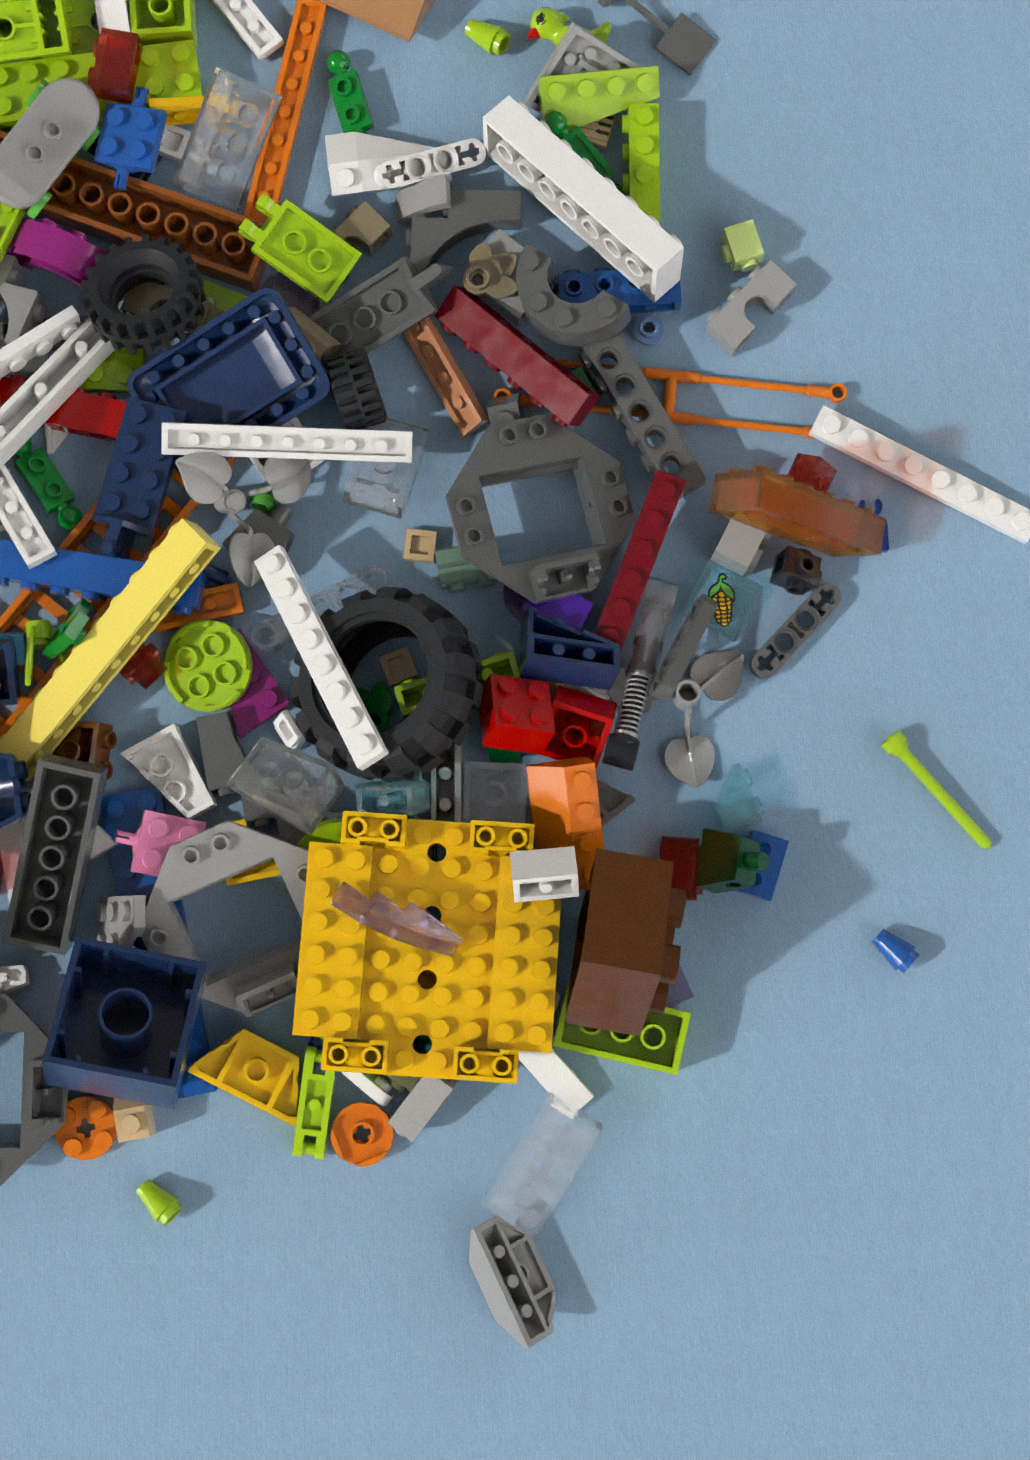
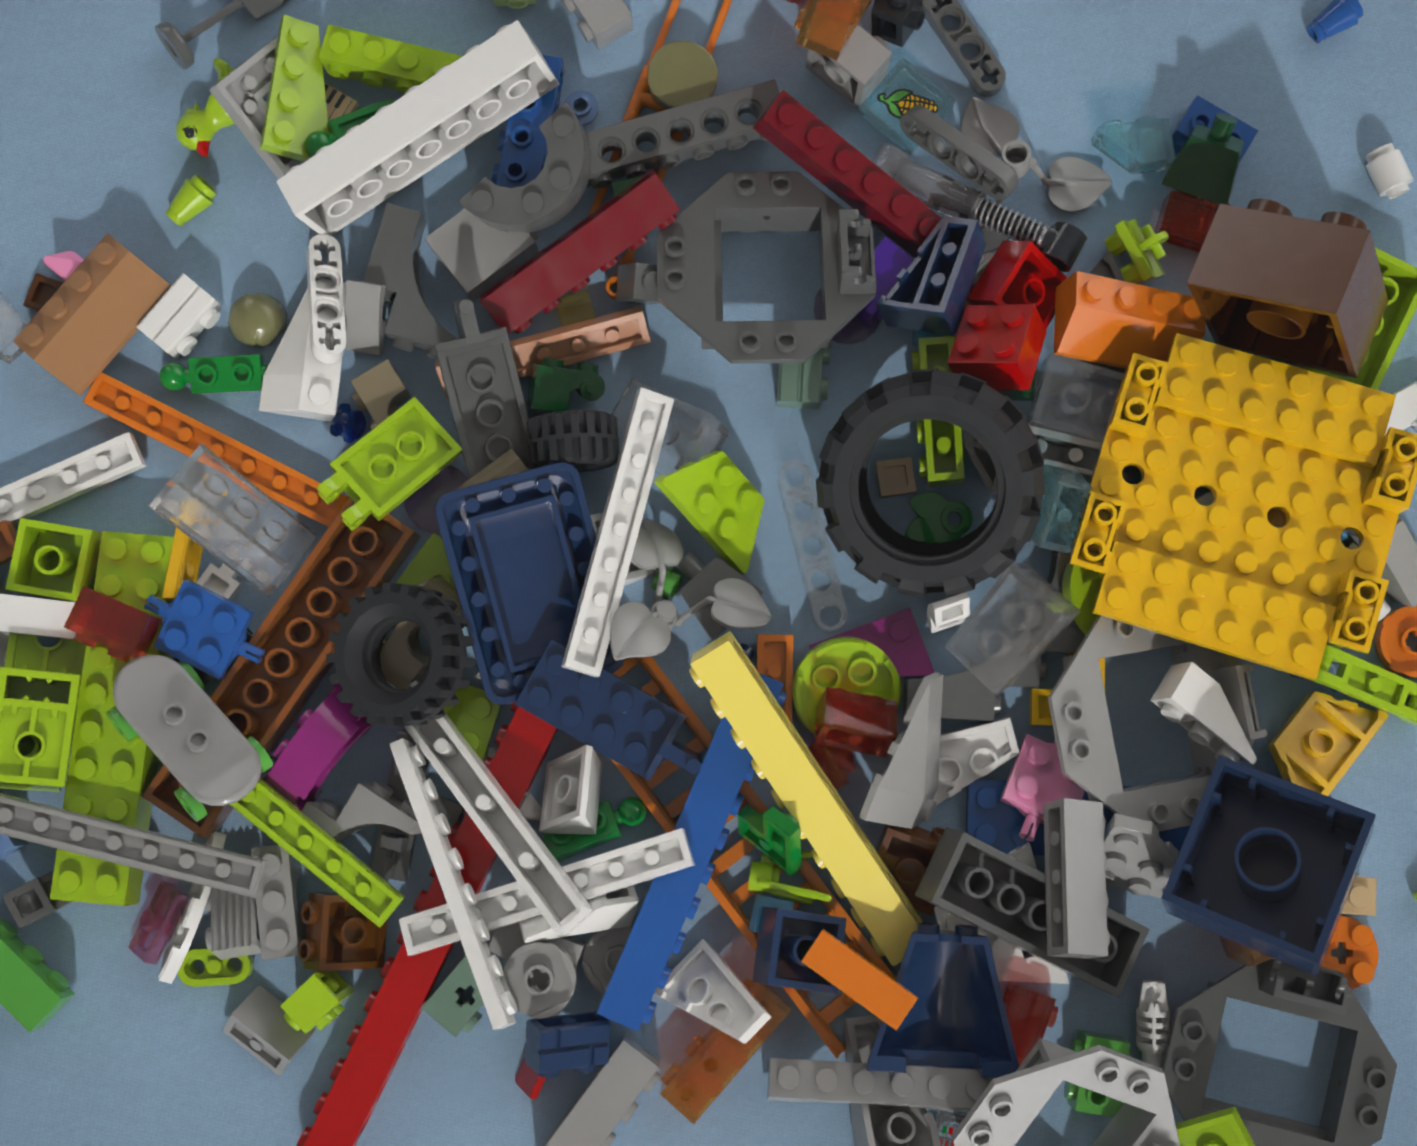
camera: 80 degrees left, 0 degrees up
(71, 465) = (572, 793): none -> white slope
(85, 876) = (1075, 879): none -> light grey brick
(149, 730) = (910, 781): none -> light grey wedge
(179, 674) = (856, 722): none -> clear red brick
(255, 951) = (1201, 707): none -> white slope
(321, 658) = (889, 544): white plate -> none
(332, 209) = (348, 423): none -> clear blue plate
(334, 522) = (718, 504): none -> lime wing
(387, 54) = (180, 317): none -> white brick
(402, 115) = (257, 319): none -> olive hair
(407, 365) = (552, 384): none -> dark green brick
(408, 925) = (1219, 520): slope -> none
(420, 546) = (763, 420): tan tile -> none
(475, 369) = (575, 308): none -> clear yellow tile
(494, 271) = (475, 254): dark tan plate -> none
(543, 872) = (1200, 349): white brick -> none
(642, 824) = (1143, 248): none -> lime hips
(694, 404) = (681, 74): none -> olive tile
(769, 1026) = (1388, 171): none -> white brick

